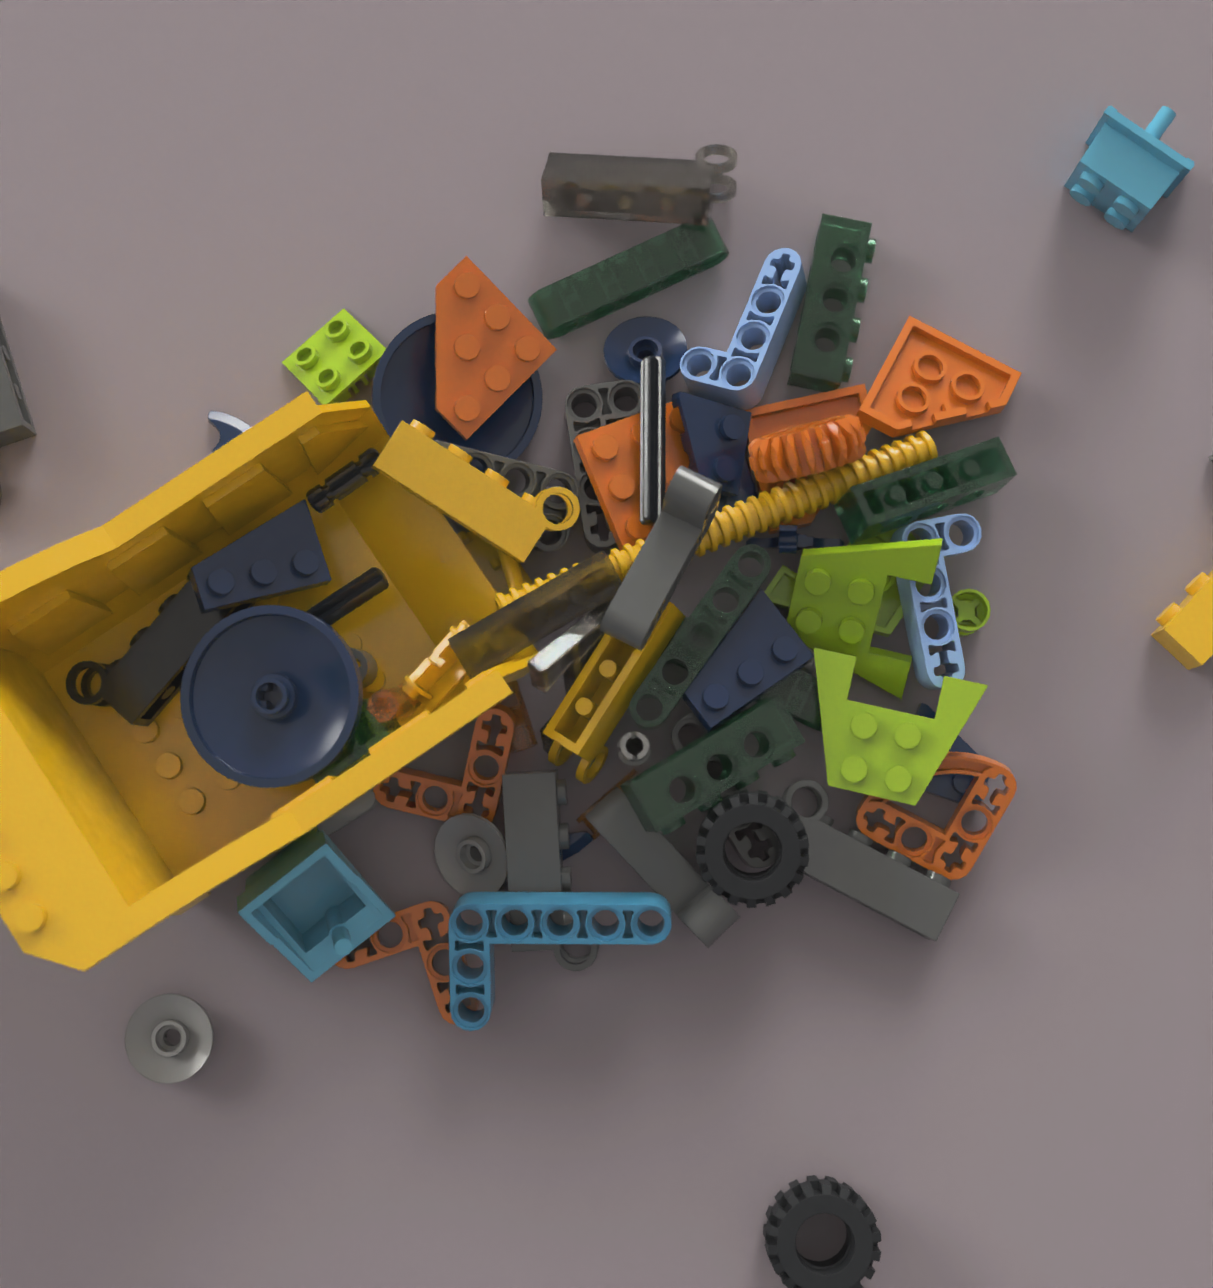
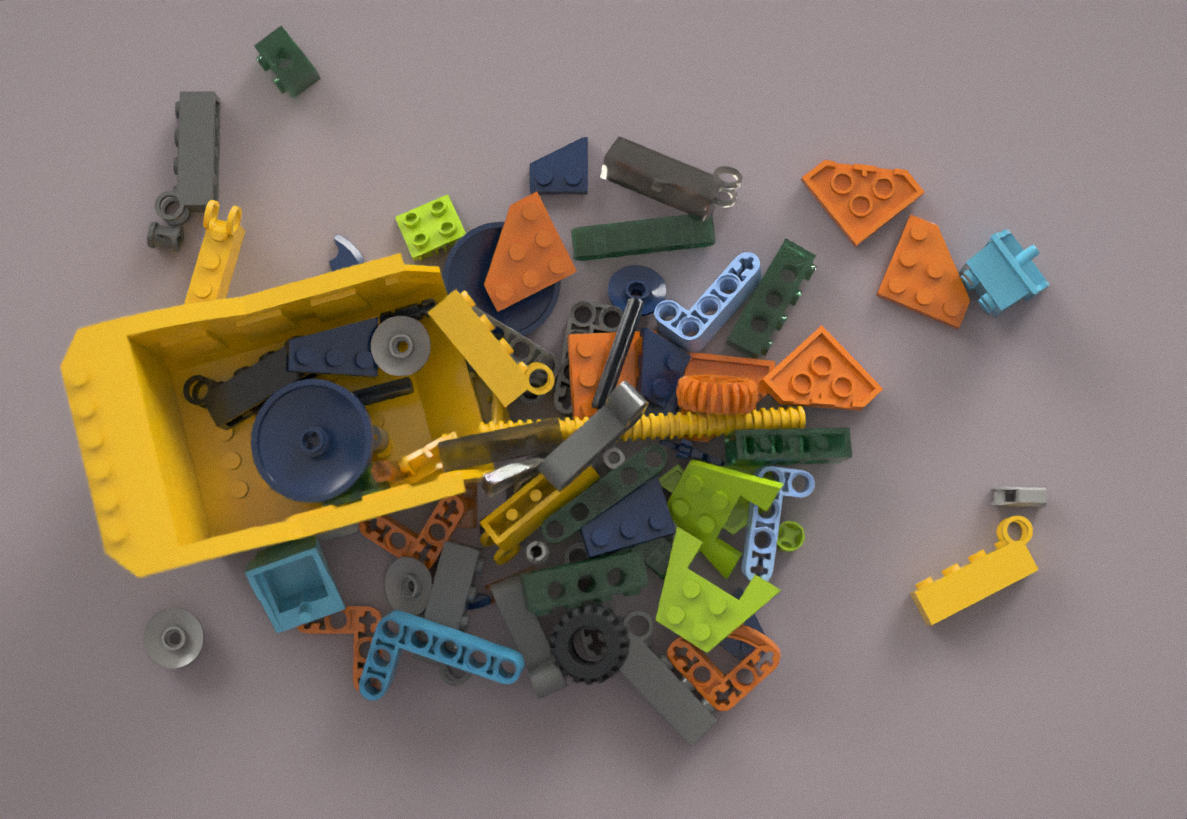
camera: 20 degrees right, 0 degrees up
(46, 184) = (279, 47): none -> clear green brick
(52, 482) = (217, 255): none -> yellow hinge
(329, 520) = (386, 342): none -> light grey dish
(488, 225) = (562, 170): none -> dark blue wing
(693, 586) = (612, 458): none -> light grey bar
(900, 128) = (861, 195): none -> orange plate
(1021, 207) = (924, 275): none -> orange plate

